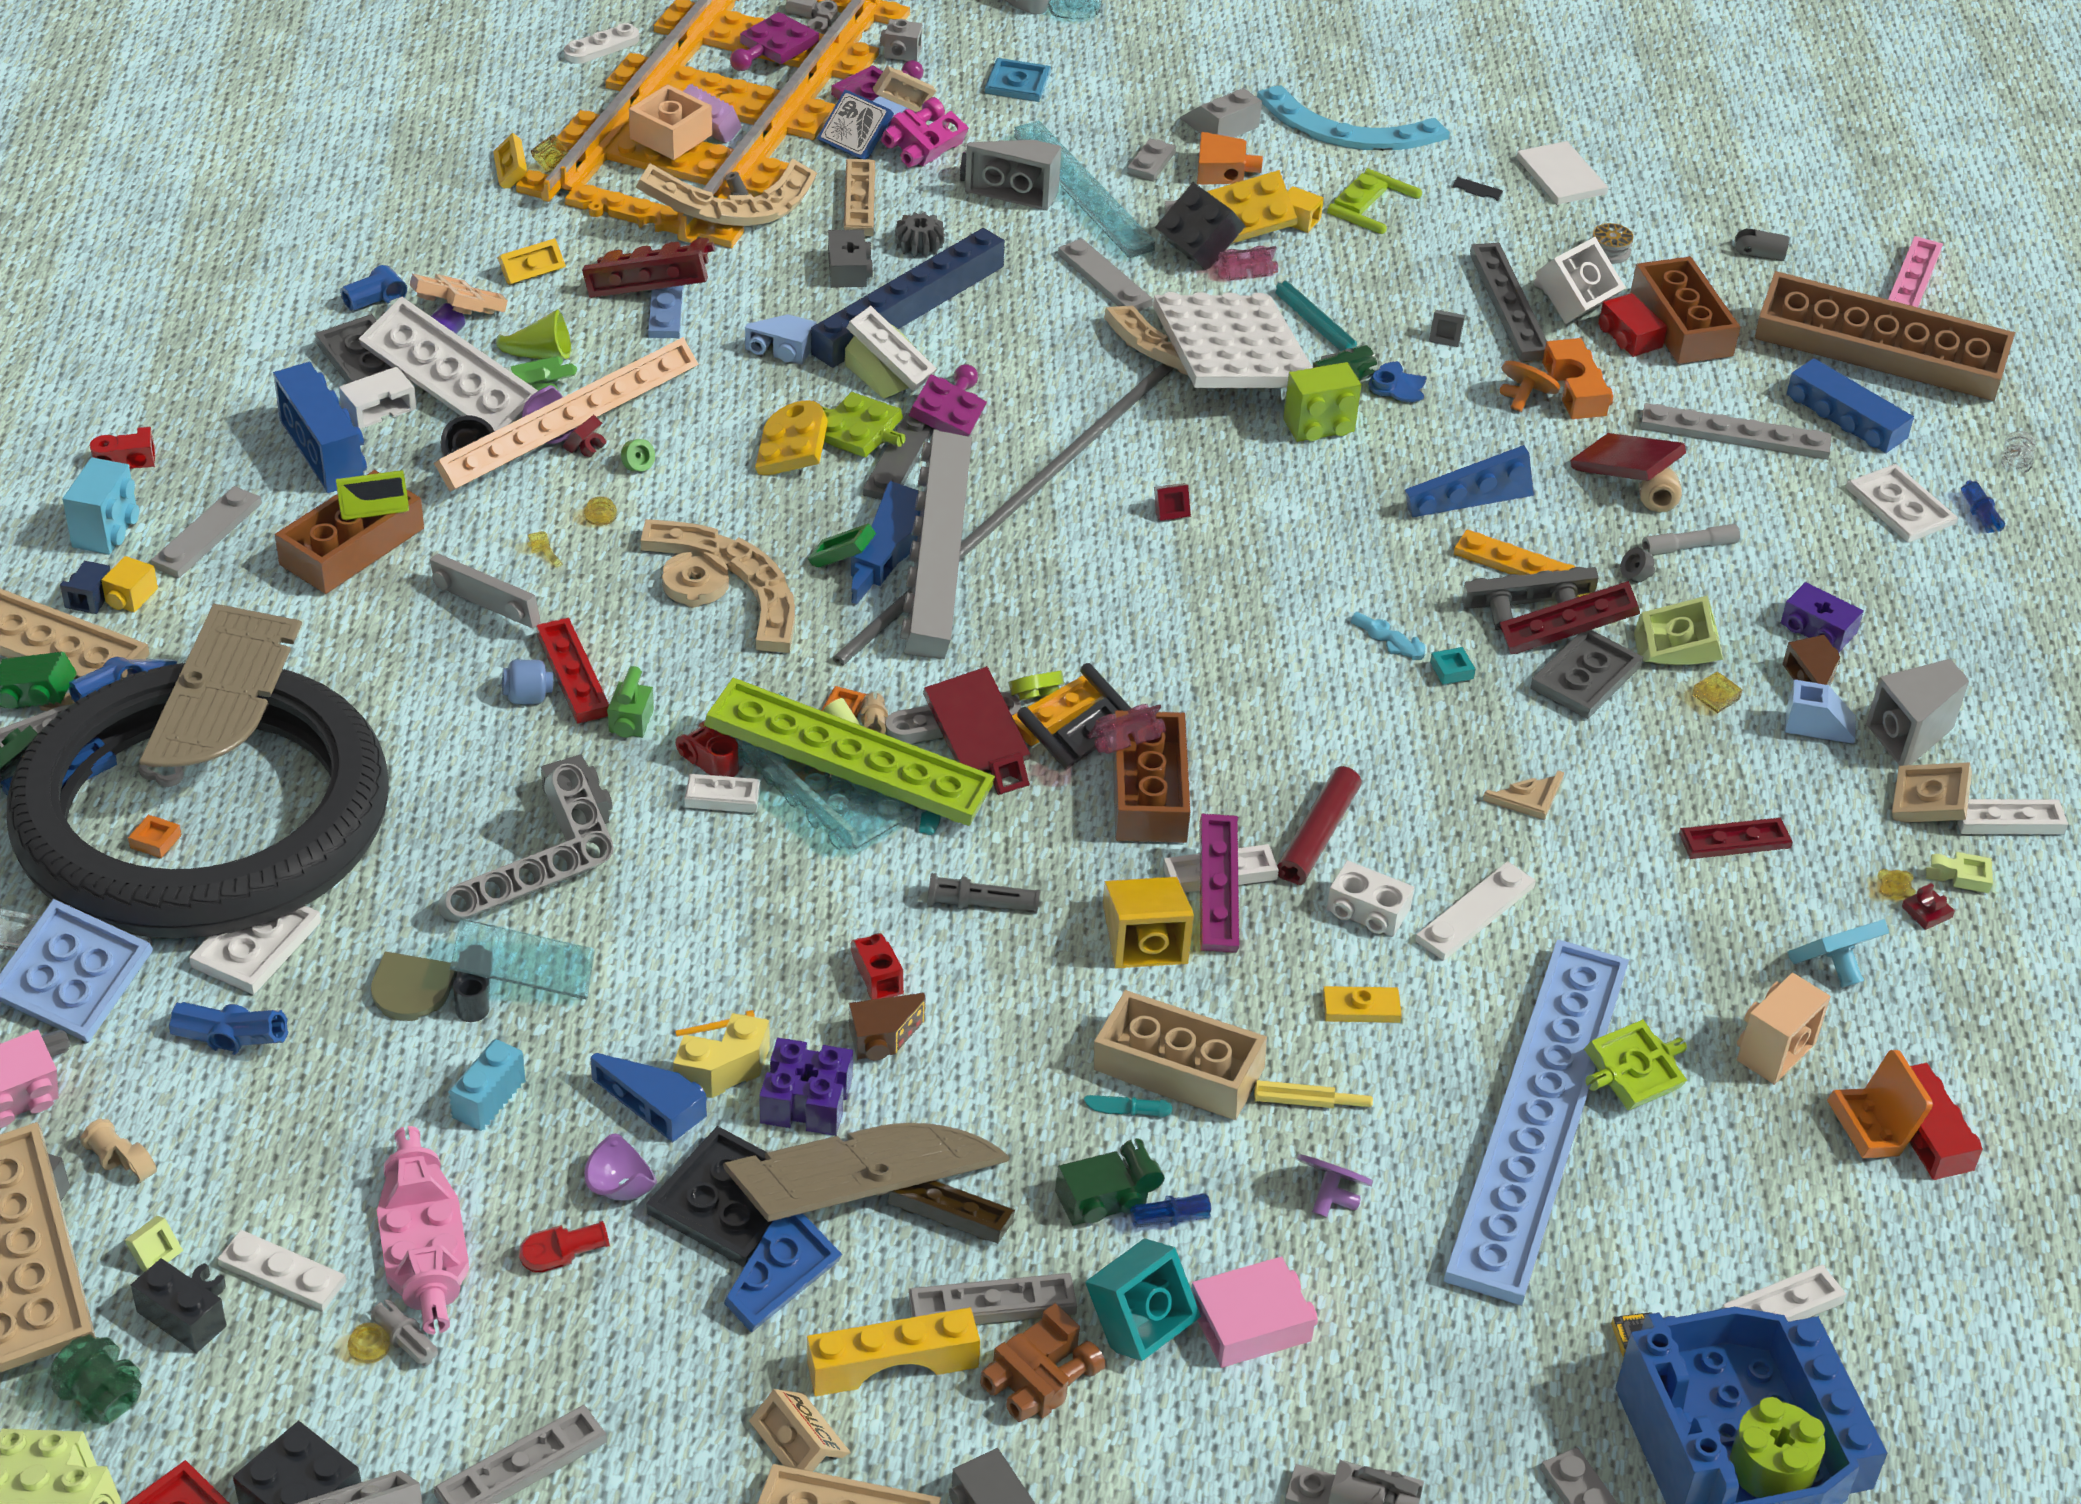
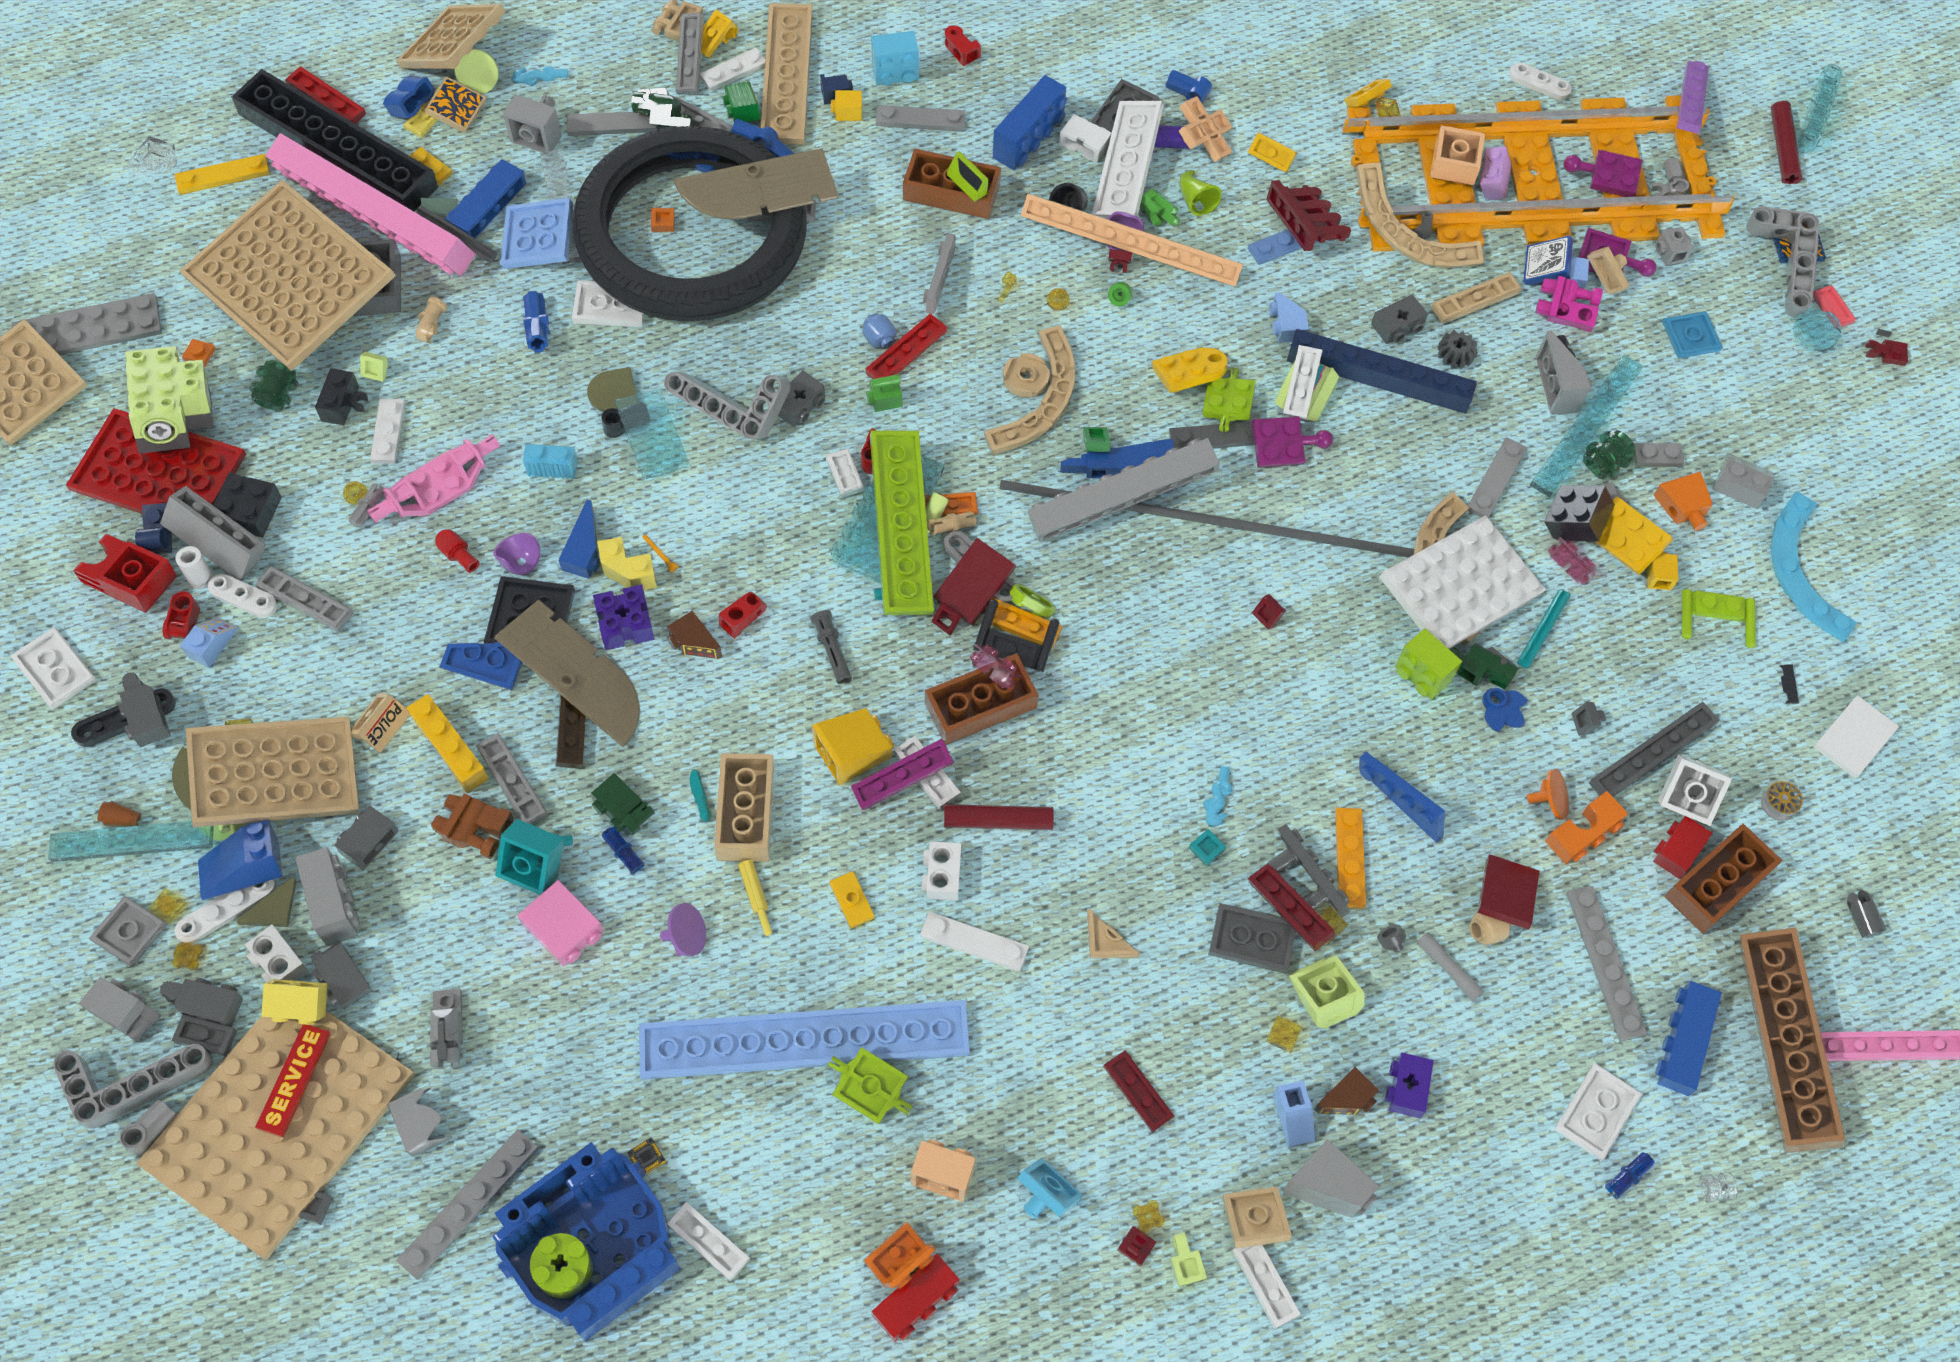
camera: 65 degrees right, 20 degrees up
(1136, 182) = (1613, 451): none -> clear green piece

